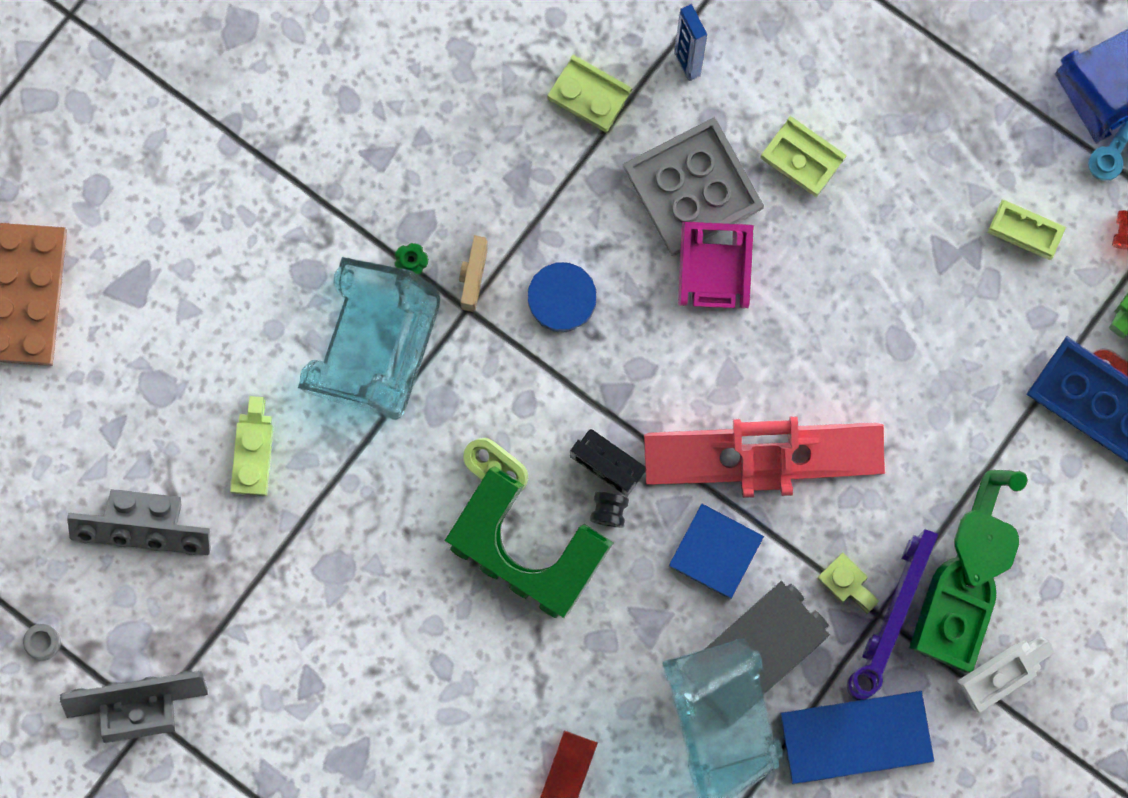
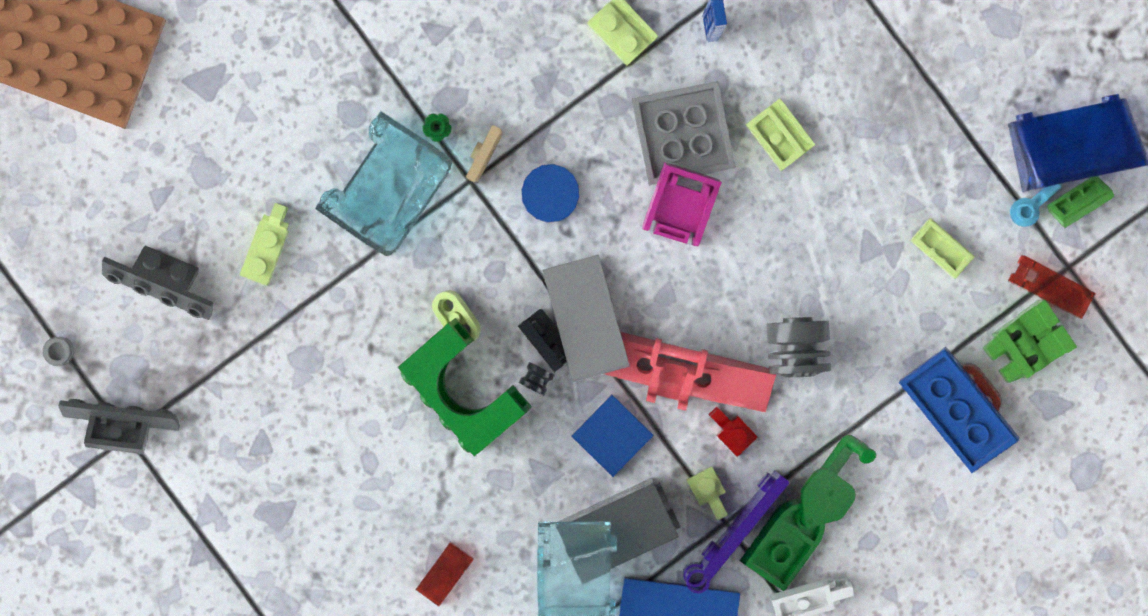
camera: 25 degrees right, 10 degrees up
(645, 423) = (585, 318): none -> light grey tile
(857, 508) = (734, 433): none -> red plate
(897, 377) = (799, 346): none -> dark grey wheel

